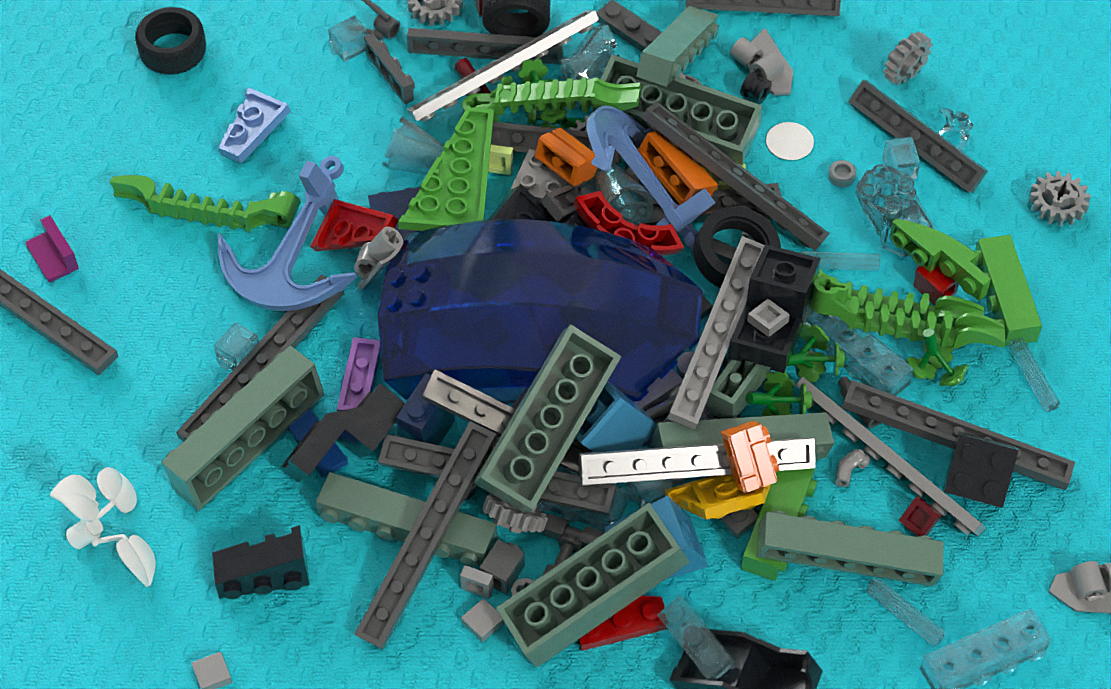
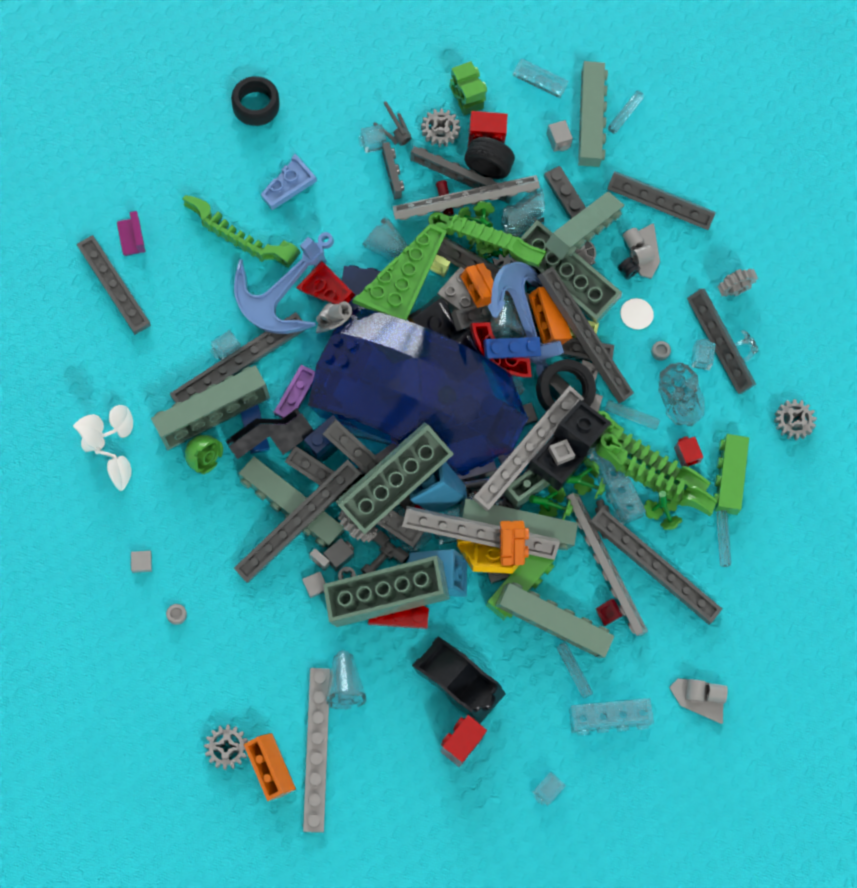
camera: 10 degrees right, 15 degrees up
(253, 493) = (202, 453): none -> bright green cylinder
(262, 567) = (192, 504): black wedge -> none
(644, 214) = (512, 348): none -> blue plate
(696, 639) = (437, 646): clear light blue plate -> none
(854, 459) = (585, 557): light grey arm -> none
(934, 249) = (691, 432): bright green slope -> none
(980, 469) = (658, 595): black brick -> none

